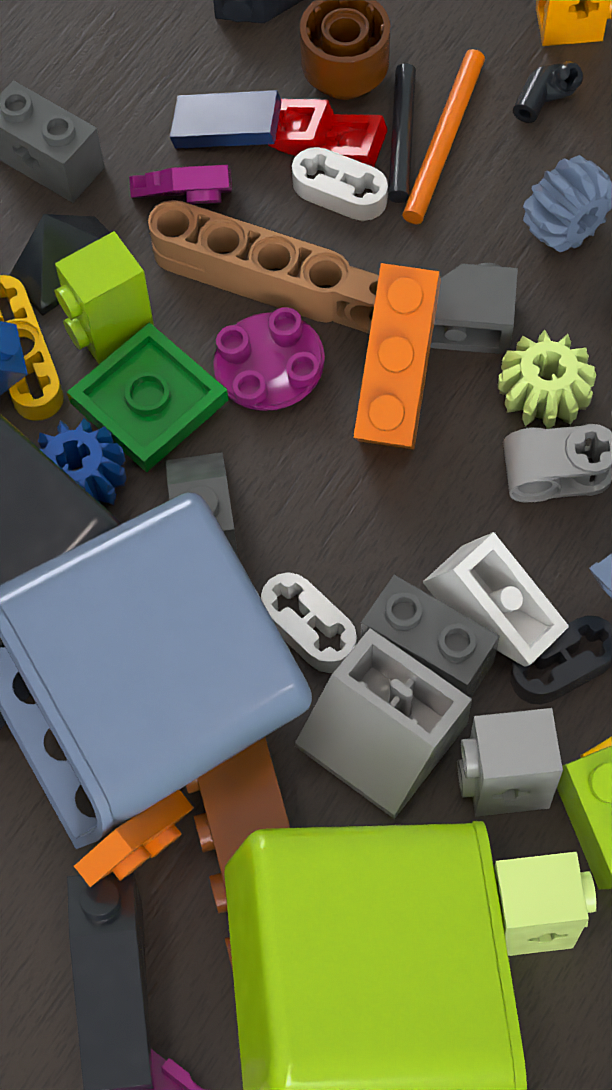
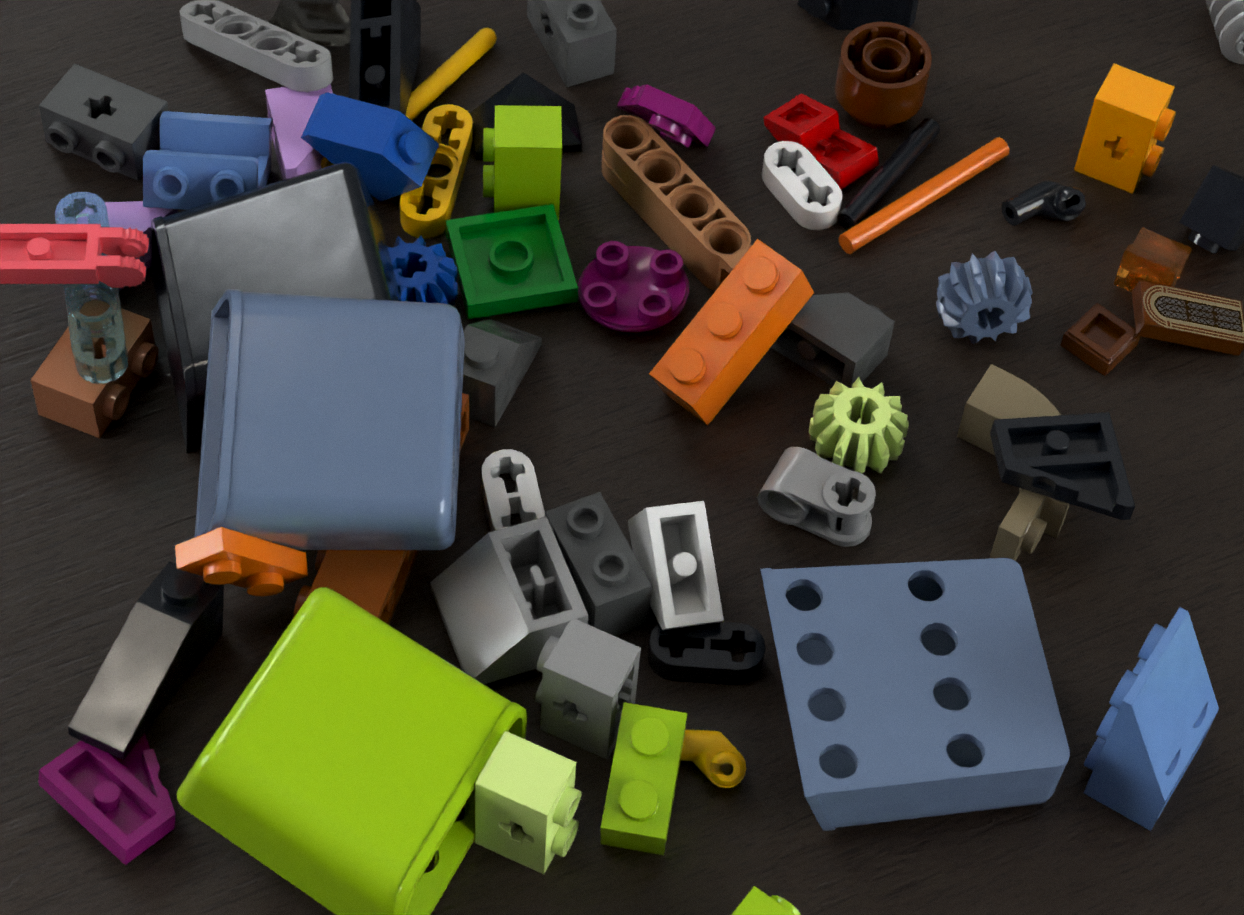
camera: 25 degrees right, 10 degrees down
(226, 119) = (740, 84): tile -> none

